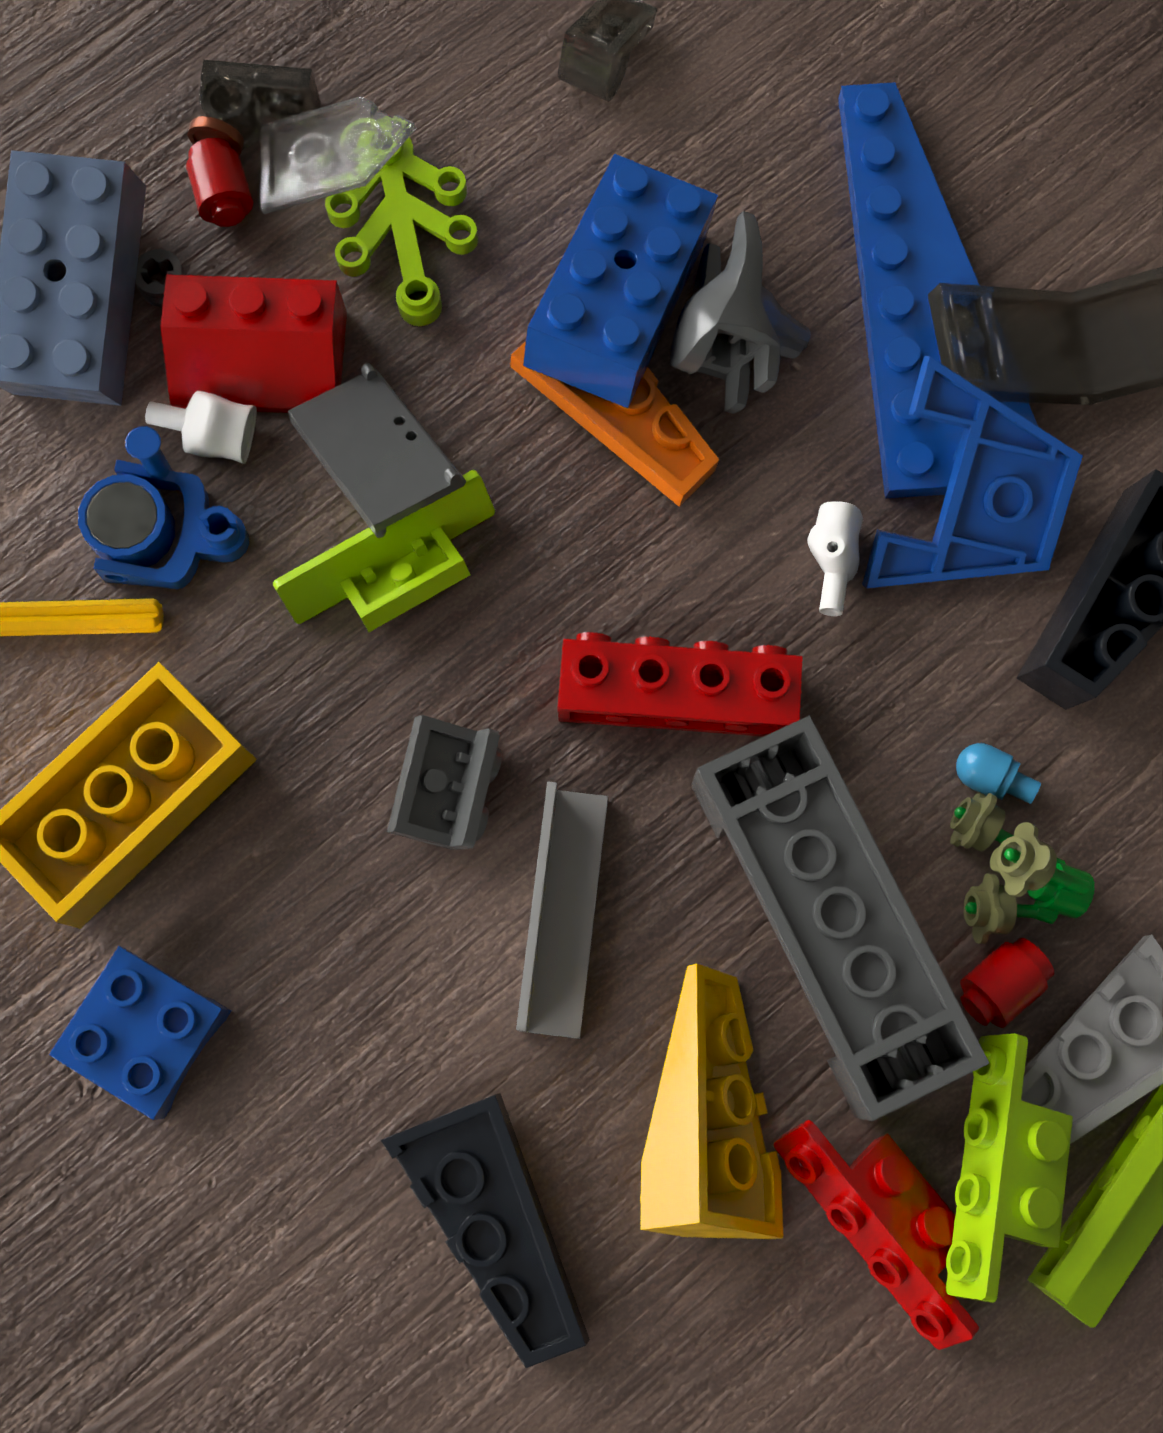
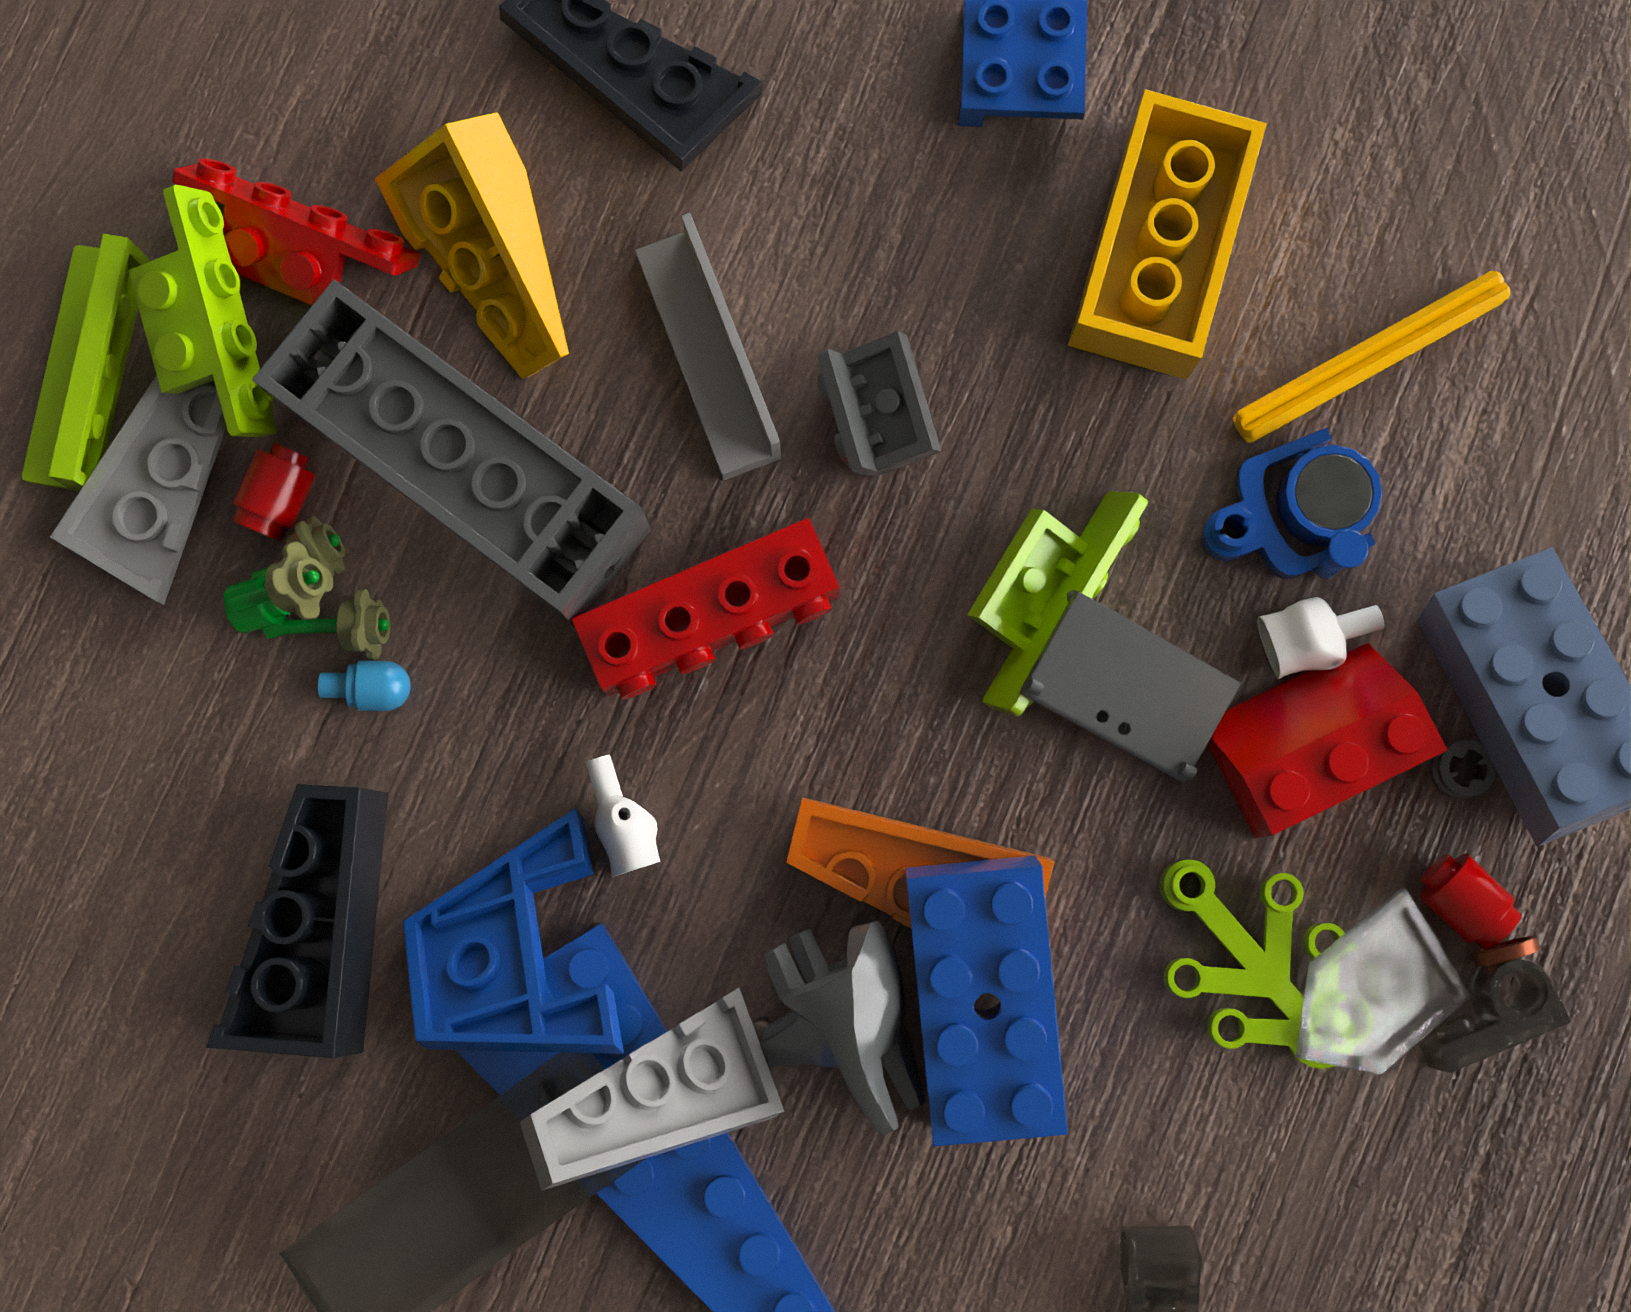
camera: 150 degrees right, 5 degrees up
(894, 320) = (663, 1096): none -> light grey wing

